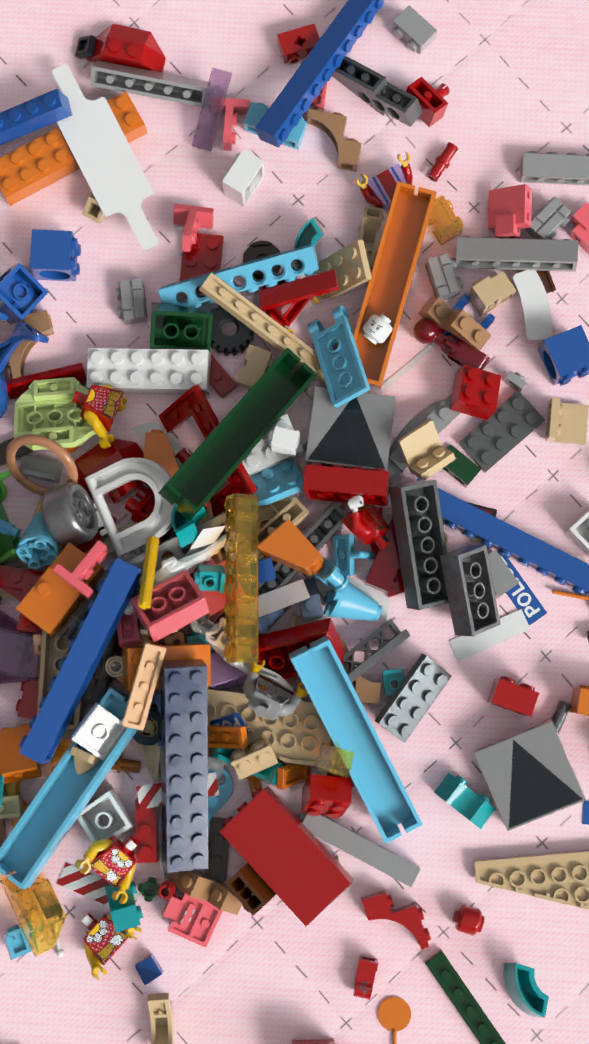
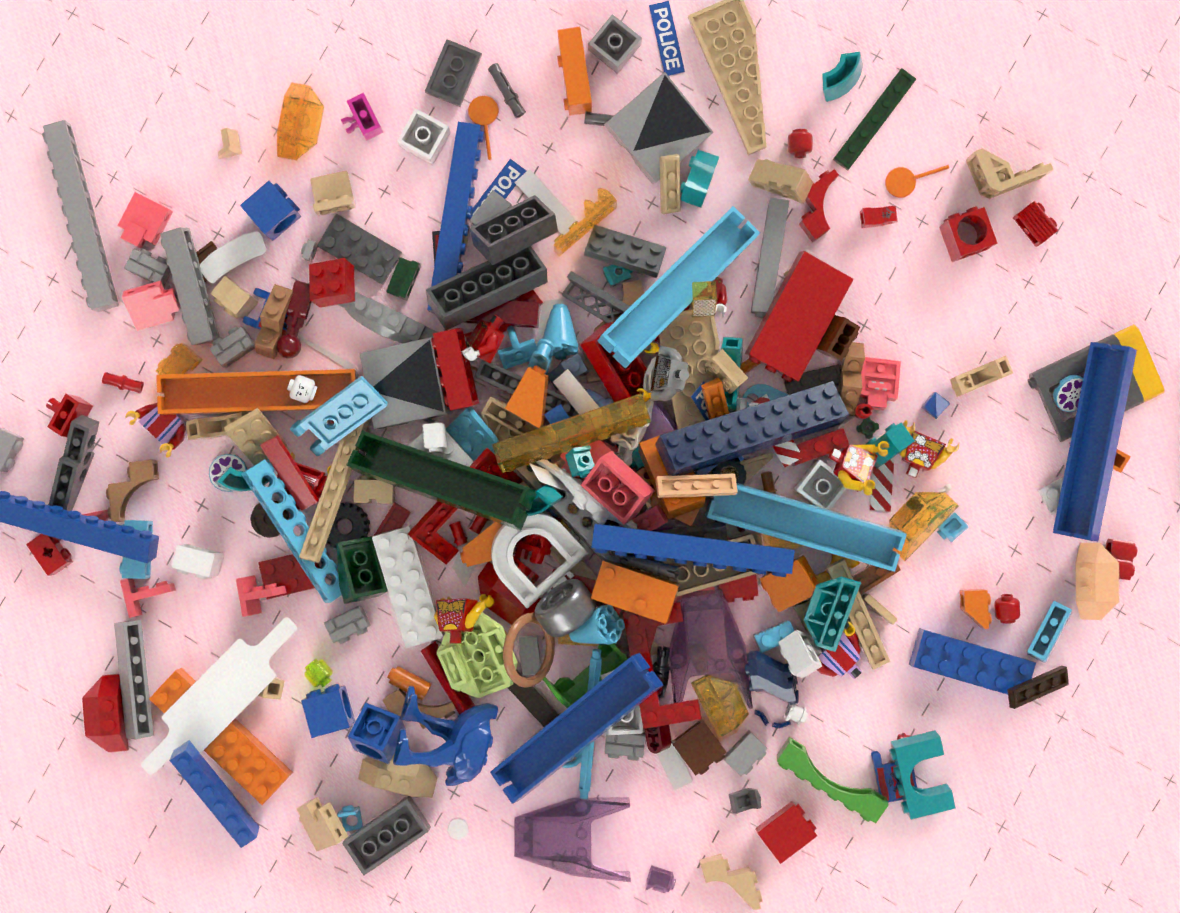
camera: 110 degrees left, 5 degrees up
(37, 642) = (688, 598): light nougat tile -> none
(58, 340) = (403, 679): none -> orange brick
(83, 570) = (612, 573): coral bracket -> none
(83, 760) = (778, 519): tan tile -> none
(85, 46) = (116, 754): black tile -> none
(95, 258) = (318, 673): none -> clear neon green head
(99, 731) = (748, 513): white plate -> none
(114, 666) = (687, 520): tan tile -> none
(148, 572) = (594, 517): yellow axle -> none
(184, 437) = (458, 533): none -> red pin
(211, 109) = (140, 612): clear purple tile -> none
(291, 775) = (728, 335): orange tile -> none
(326, 795) = (736, 297): red brick -> none
(331, 237) = (223, 462): none -> tile
(424, 451) = (402, 309): tan bracket -> none
(435, 885) = (781, 180): none -> tan wedge
(460, 678) = (593, 213): none -> clear yellow hinge
(468, 767) = (670, 184): none -> tan tile
(513, 697) = (596, 163): red brick -> none

